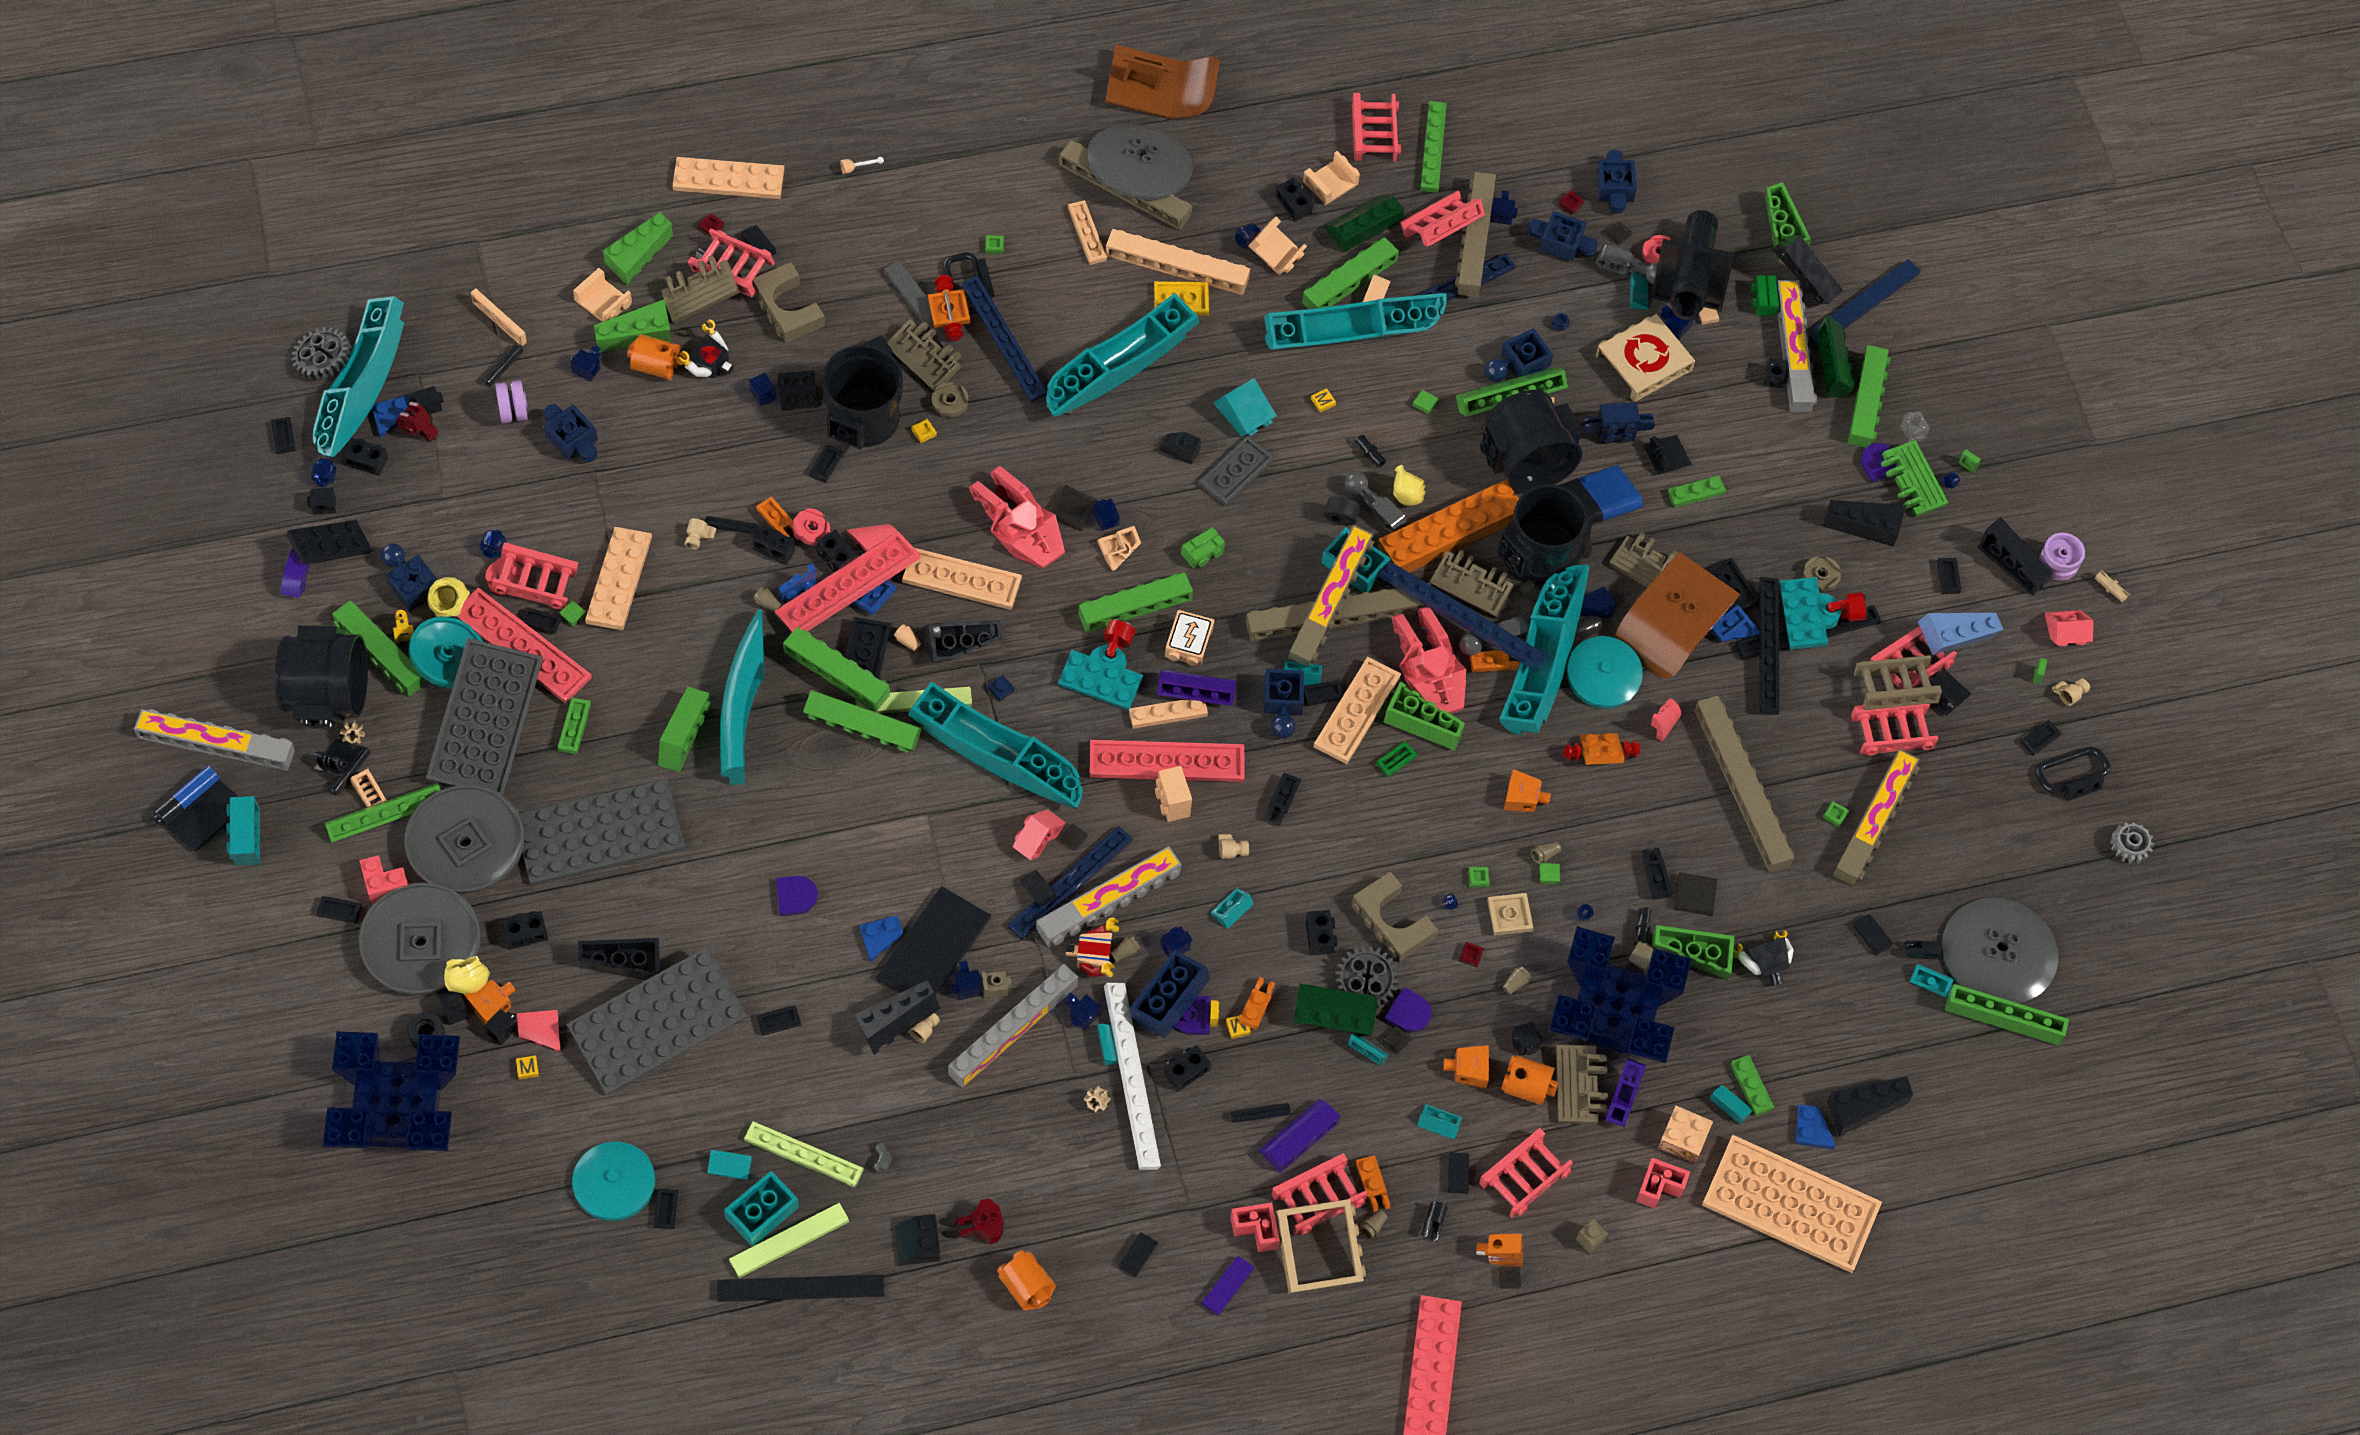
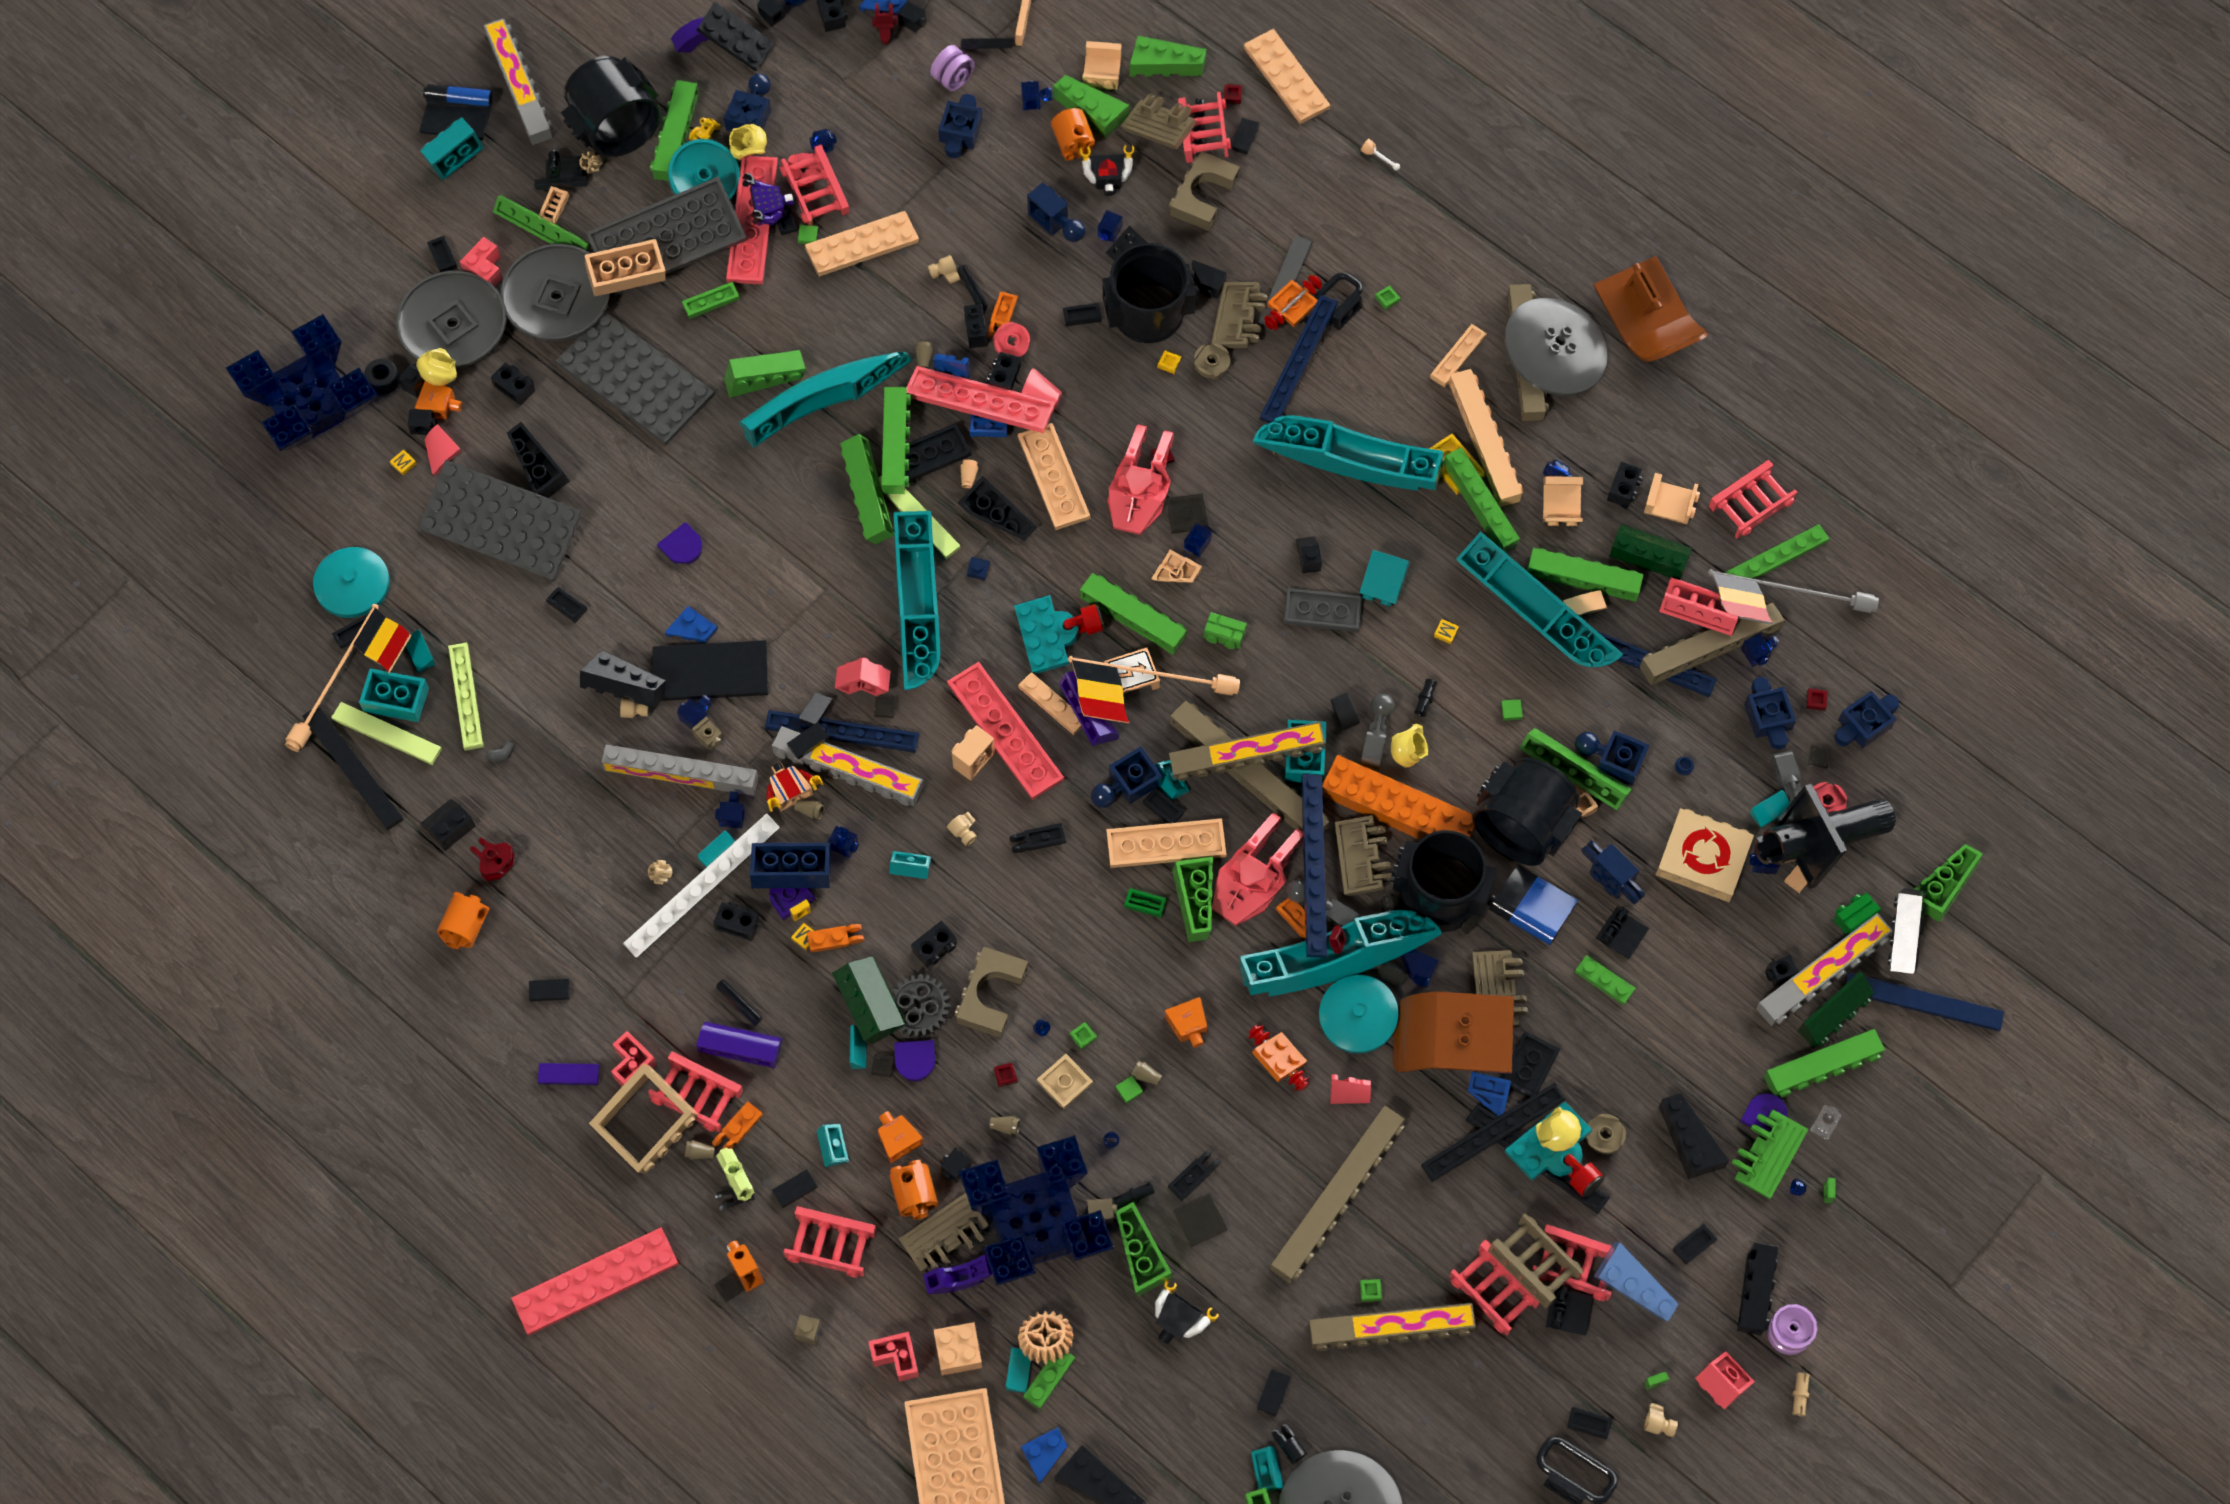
camera: 60 degrees right, 5 degrees up
(496, 765) = (625, 267): none -> light nougat brick
(520, 620) = (766, 201): none -> dark purple torso
(694, 1190) = (379, 641): none -> flag
(712, 419) = (1052, 213): none -> dark blue brick
(1068, 907) = (808, 740): none -> black tile
(1196, 663) = (1102, 691): none -> flag
(1232, 299) = (1480, 500): none -> bright green brick
(1430, 1205) = (735, 1174): none -> yellowish green piece
(1462, 187) = (1744, 598): none -> flag
(1539, 640) = (1337, 939): none -> dark red tile
(1723, 1069) = (1034, 1332): none -> light nougat gear
(1807, 596) = (1559, 1130): none -> light yellow helmet

